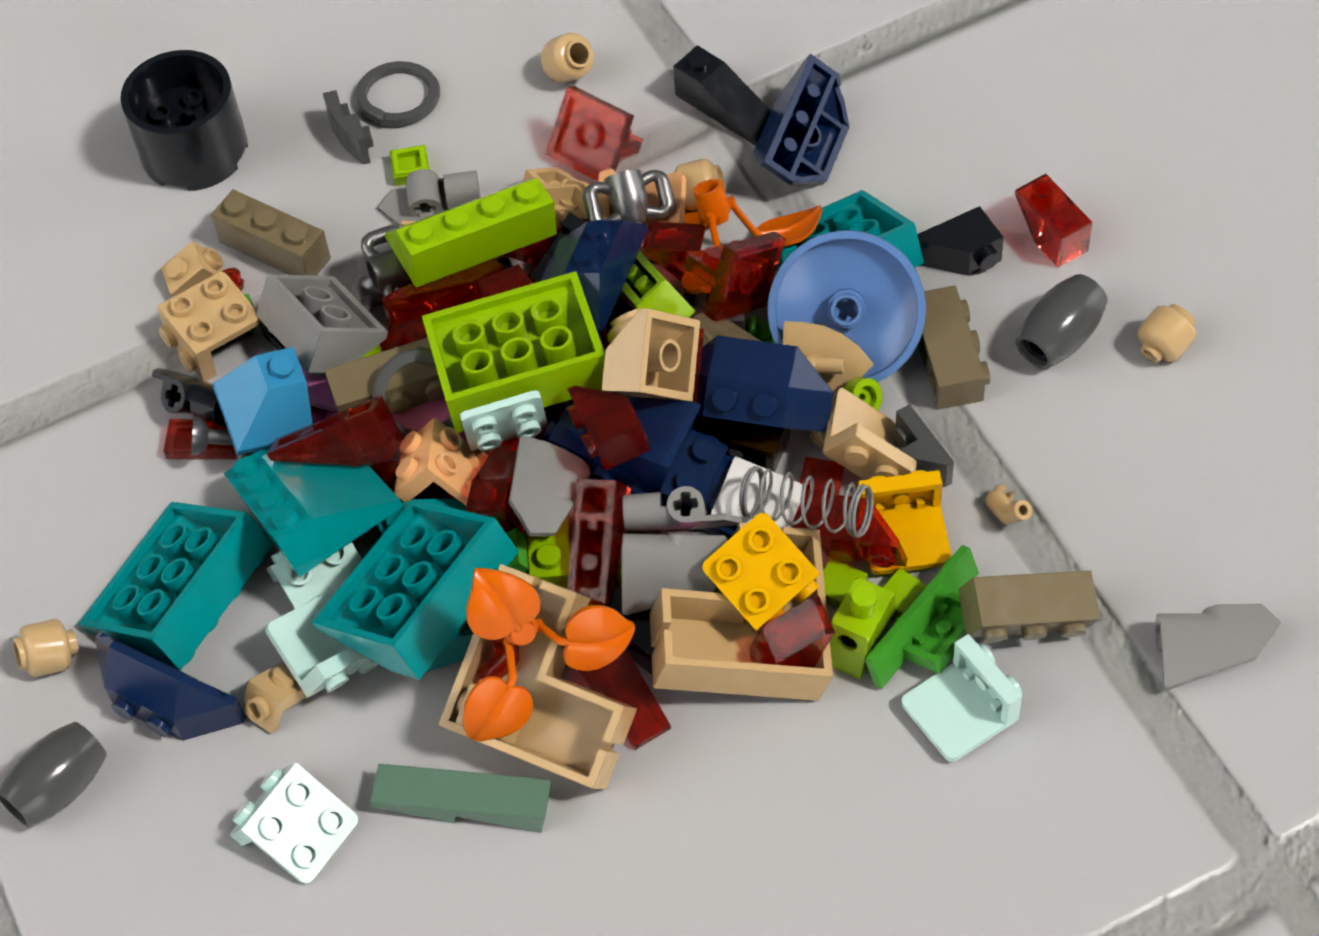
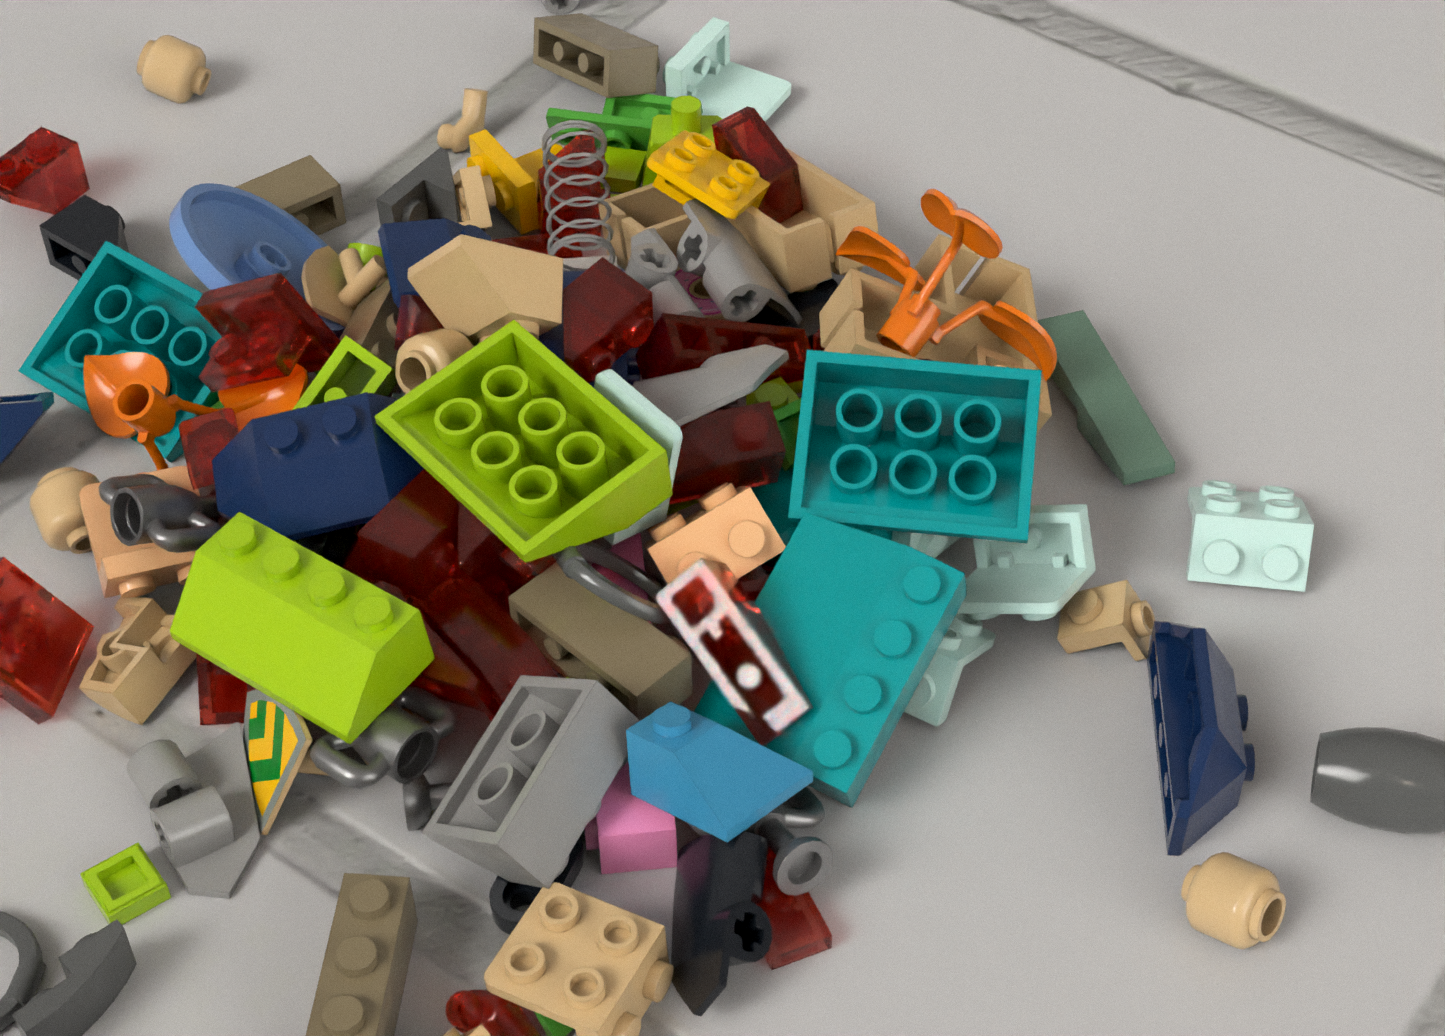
camera: 120 degrees left, 10 degrees down
(179, 581) = (1032, 803): teal slope -> none
(1061, 321) = (192, 133): dark grey piece -> none

